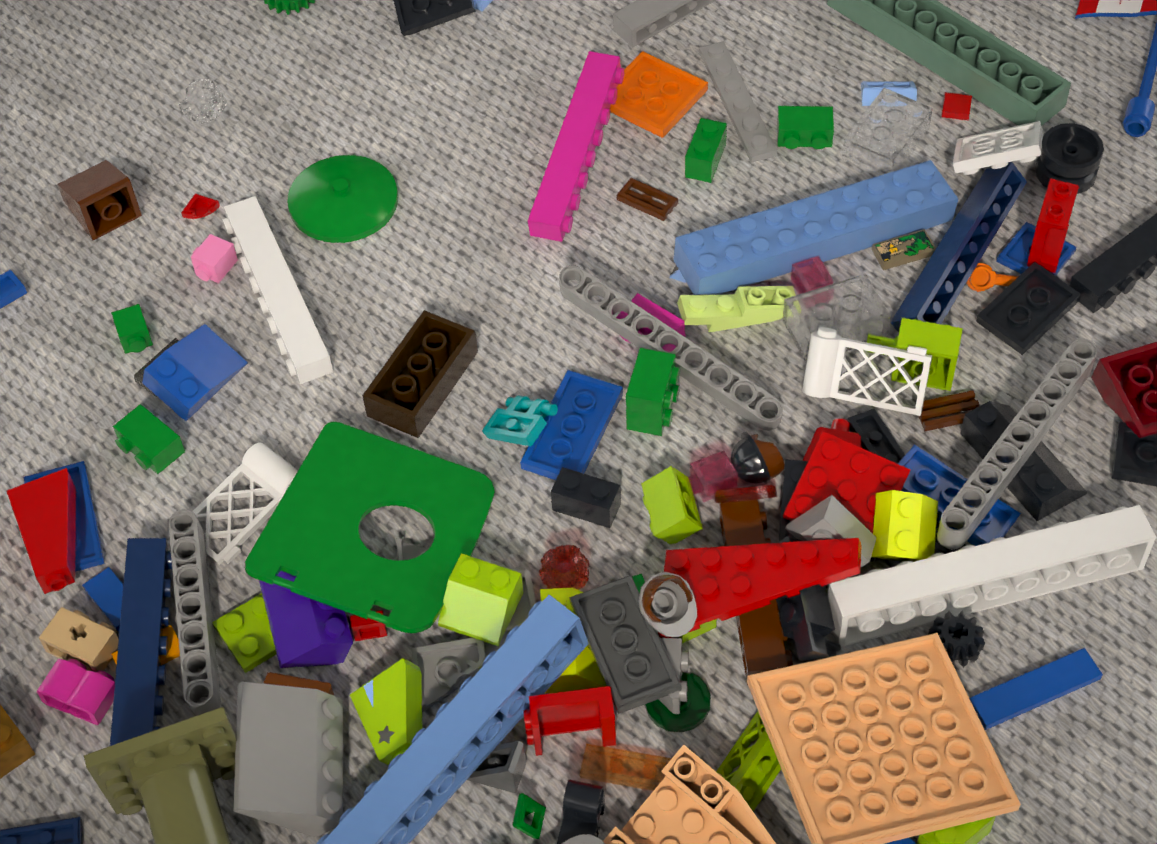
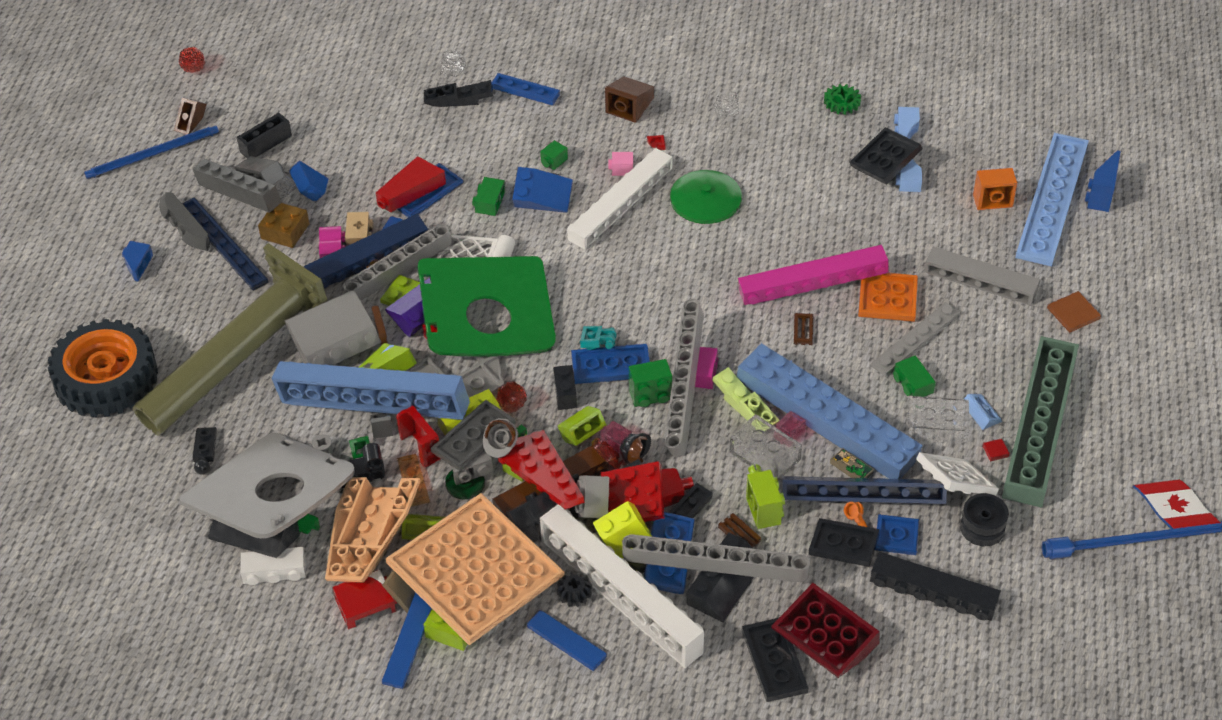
camera: 60 degrees right, 5 degrees down
(420, 374) = (600, 281): dark brown brick -> none
(480, 599) = (471, 365): lime slope -> none
(705, 150) = (857, 337): green brick -> none
(826, 364) = (719, 458): white piece -> none
(1052, 224) = (904, 522): red panel -> none

